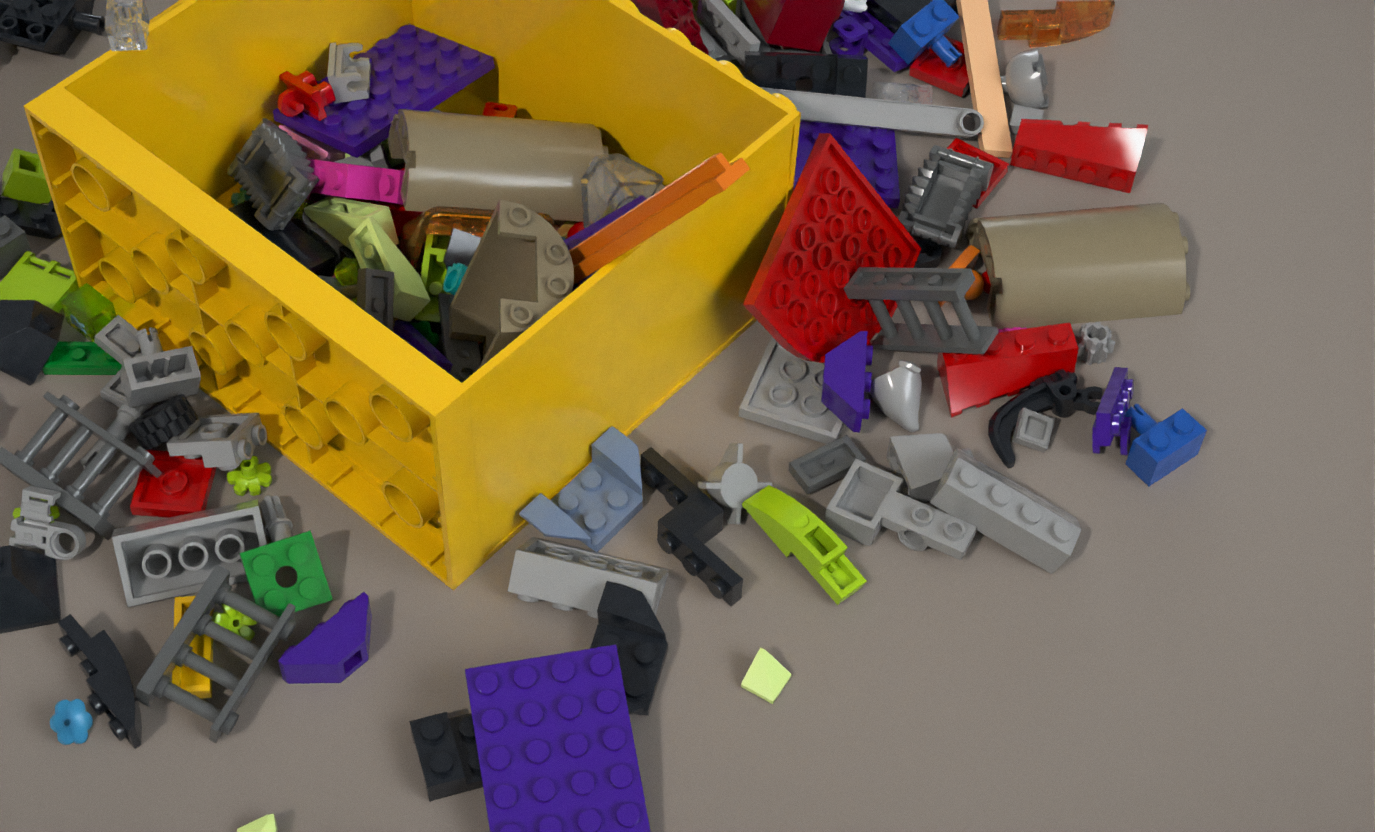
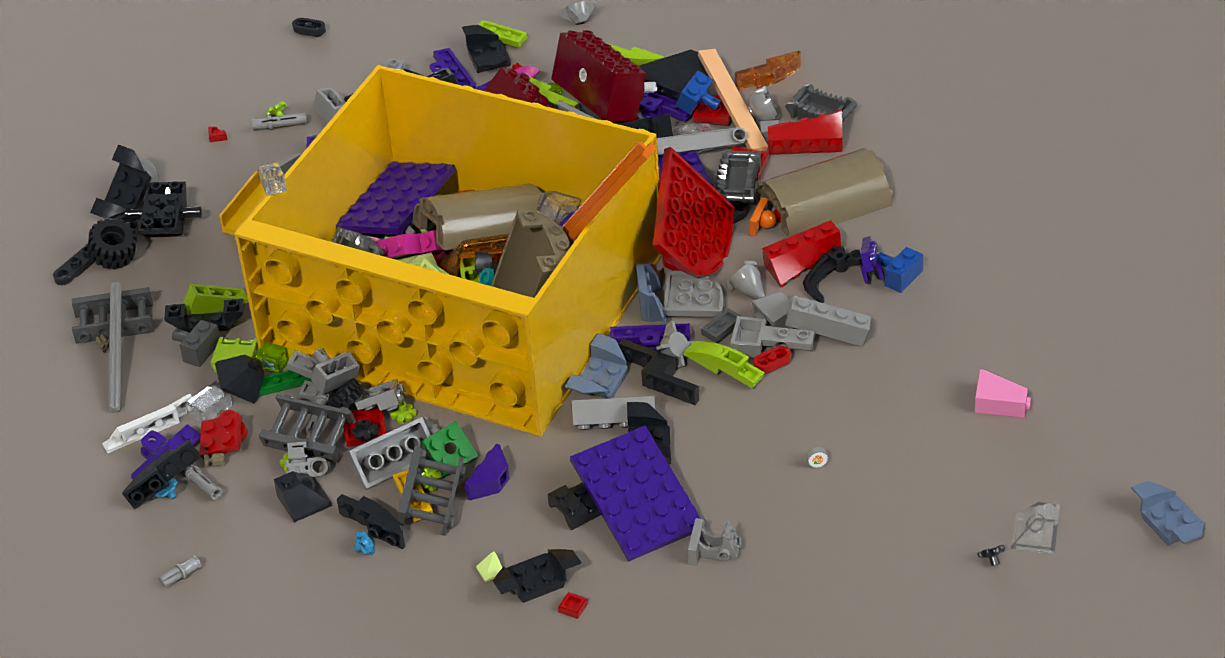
camera: 10 degrees left, 10 degrees down
(167, 497) = (365, 430): none -> black plant
(304, 95) = (355, 210): red hips -> none
(346, 75) = (375, 195): light grey hinge -> none
(697, 448) = (646, 335): none -> dark purple plate
(730, 342) = (649, 281): none -> sand blue piece
(766, 677) = (726, 429): yellowish green slope -> none
(847, 381) = (718, 280): dark purple slope -> none
(886, 557) = (772, 359): none -> red plate
(901, 788) = (817, 457): none -> tile
(927, 286) = (747, 215): dark grey fence -> none
(1033, 430) = (828, 280): light grey tile -> none
(1094, 343) = (848, 230): light grey gear -> none
(1108, 99) = (811, 103): none -> dark grey piece
(1265, 758) = (1000, 396): none -> bright pink slope

